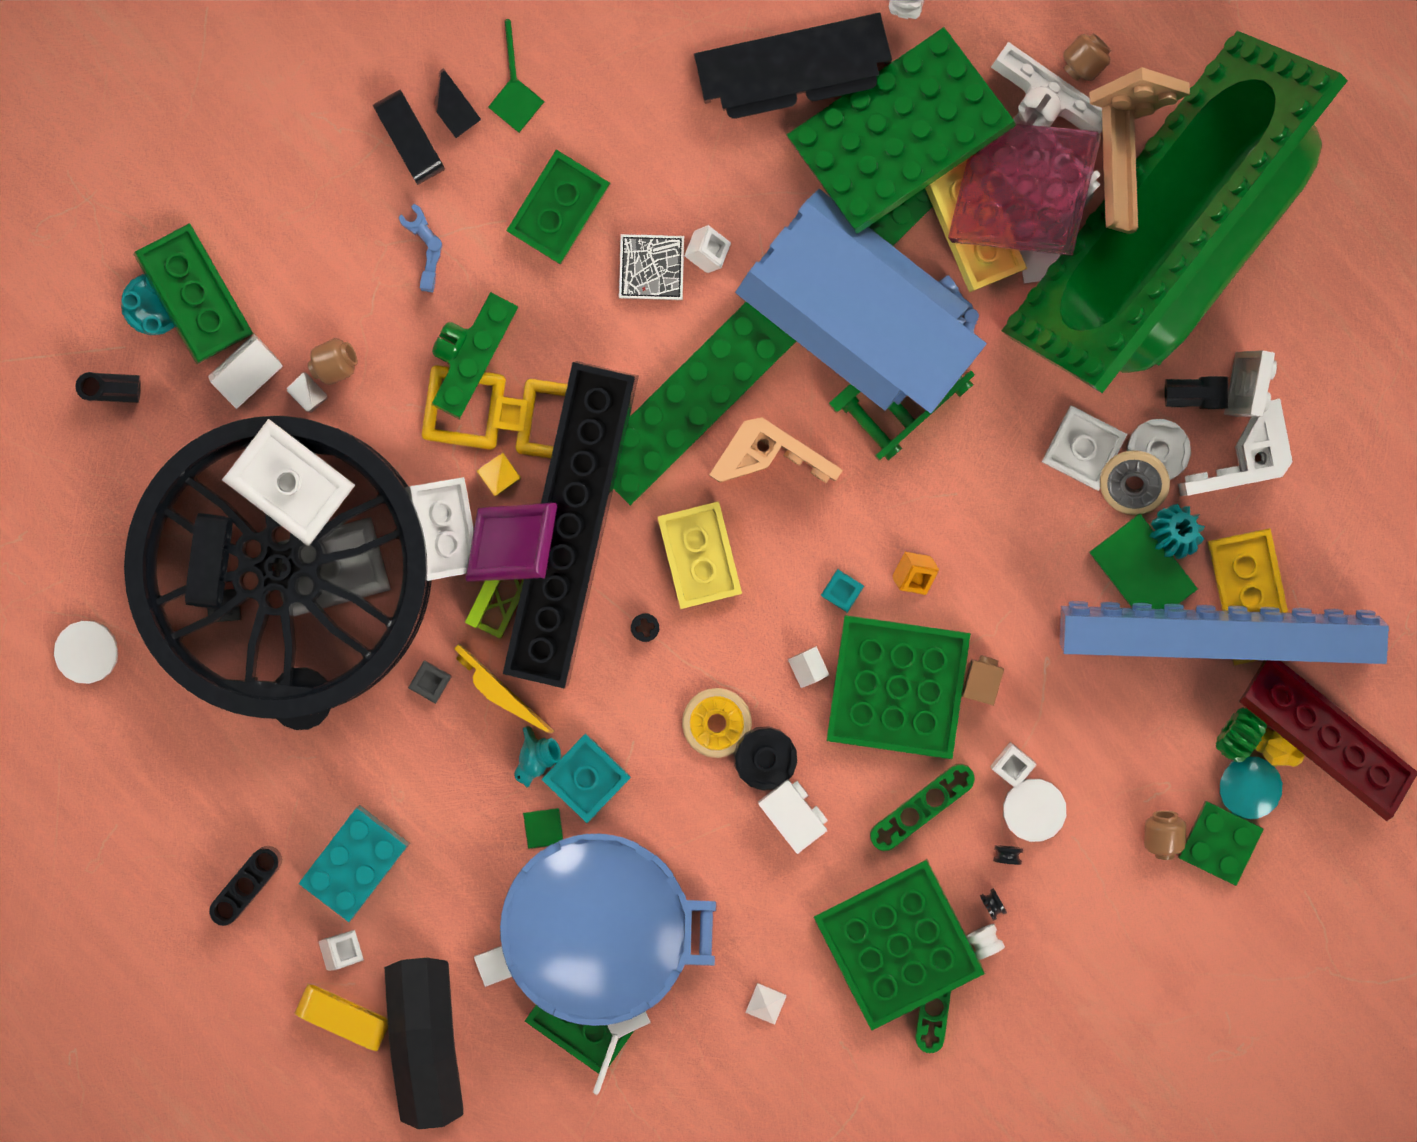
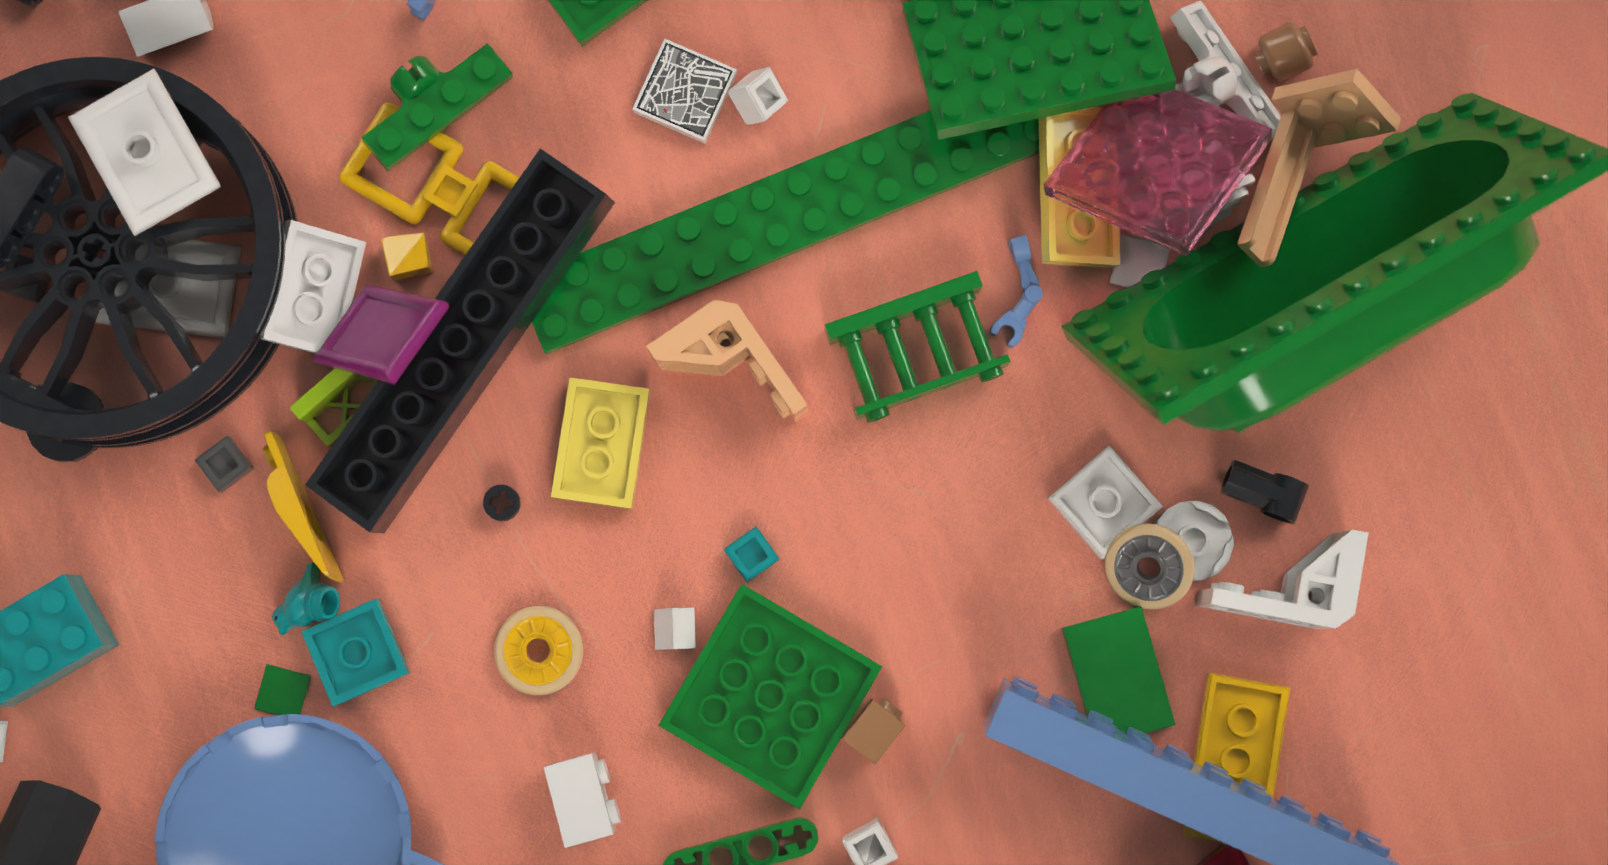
camera: 25 degrees right, 5 degrees down
(306, 392) = (227, 72): white slope -> none
(332, 361) = (272, 48): medium nougat head -> none
(492, 966) = (143, 833): white tile -> none
(765, 758) = (577, 716): black tile -> none
(862, 308) = (908, 229): medium blue panel -> none
(915, 573) = (846, 568): light orange slope -> none
(1177, 531) = (1178, 645): teal gear -> none
(1250, 383) = (1337, 501): white plate -> none

